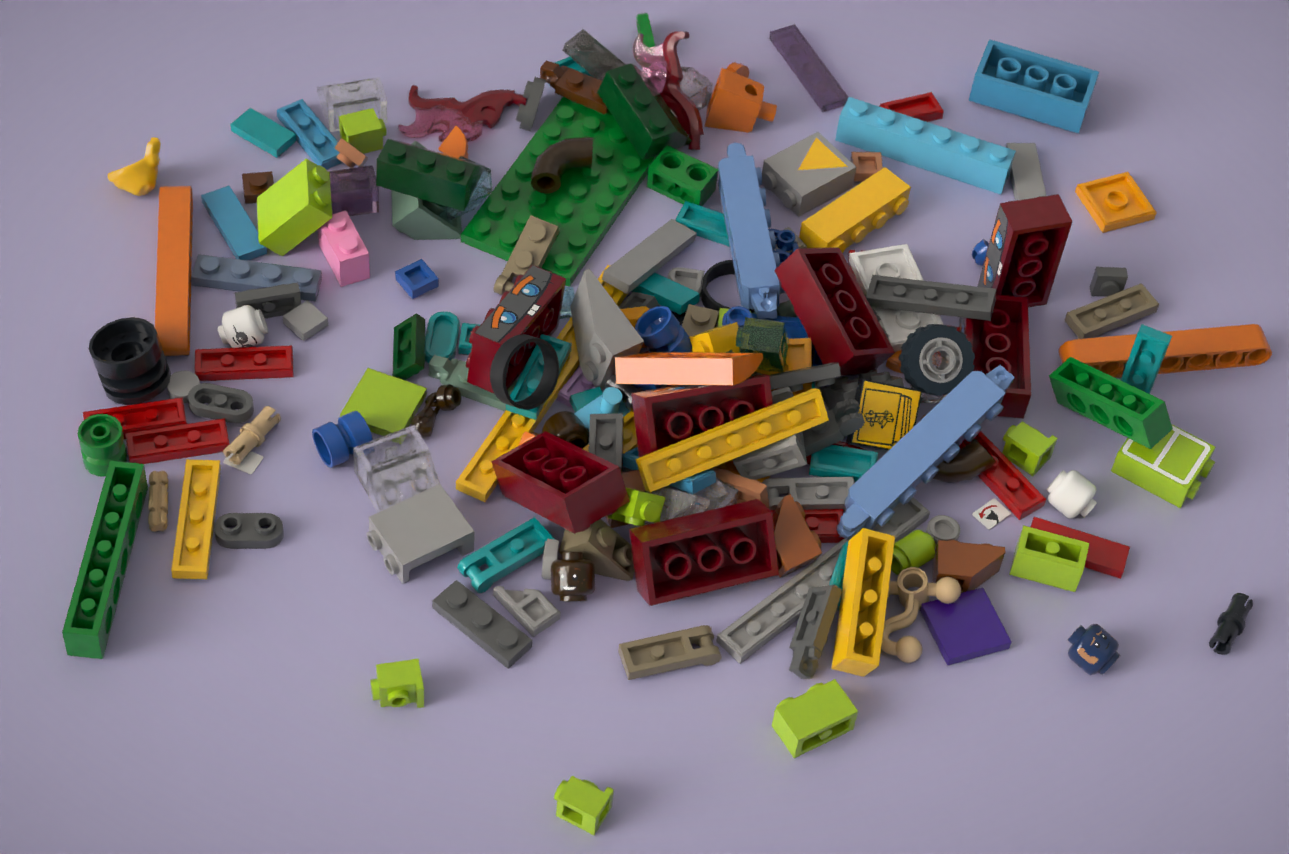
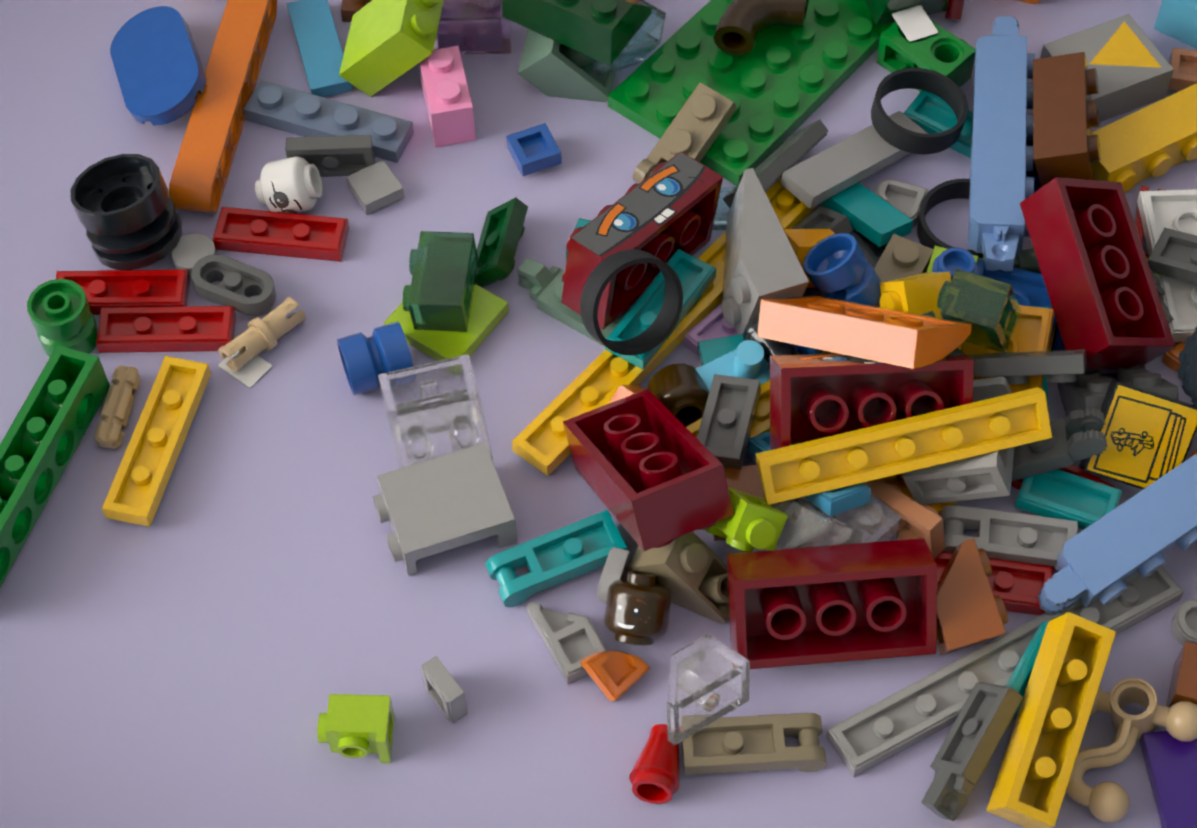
camera: 20 degrees right, 5 degrees up
(117, 252) = (157, 65): none -> blue tile
(248, 530) = (219, 467): dark grey plate -> none
(379, 378) = (441, 281): none -> clear green brick
(442, 336) = (548, 233): teal tile -> none
(446, 399) = (531, 321): dark brown piece -> none
(452, 651) = (444, 689): none -> light grey tile
(482, 624) = (500, 654): dark grey plate -> none
(565, 621) = (614, 671): none -> orange tile
(599, 261) = (785, 156): none -> dark grey tile
(610, 678) = (657, 768): none -> red cone
(631, 618) = (704, 686): none -> clear slope
(671, 155) = (914, 23): none -> white sticker
(695, 197) = (923, 80): none -> black tyre
(790, 208) = (1065, 117): none -> reddish brown brick
(913, 551) = (1143, 650): lime brick -> none

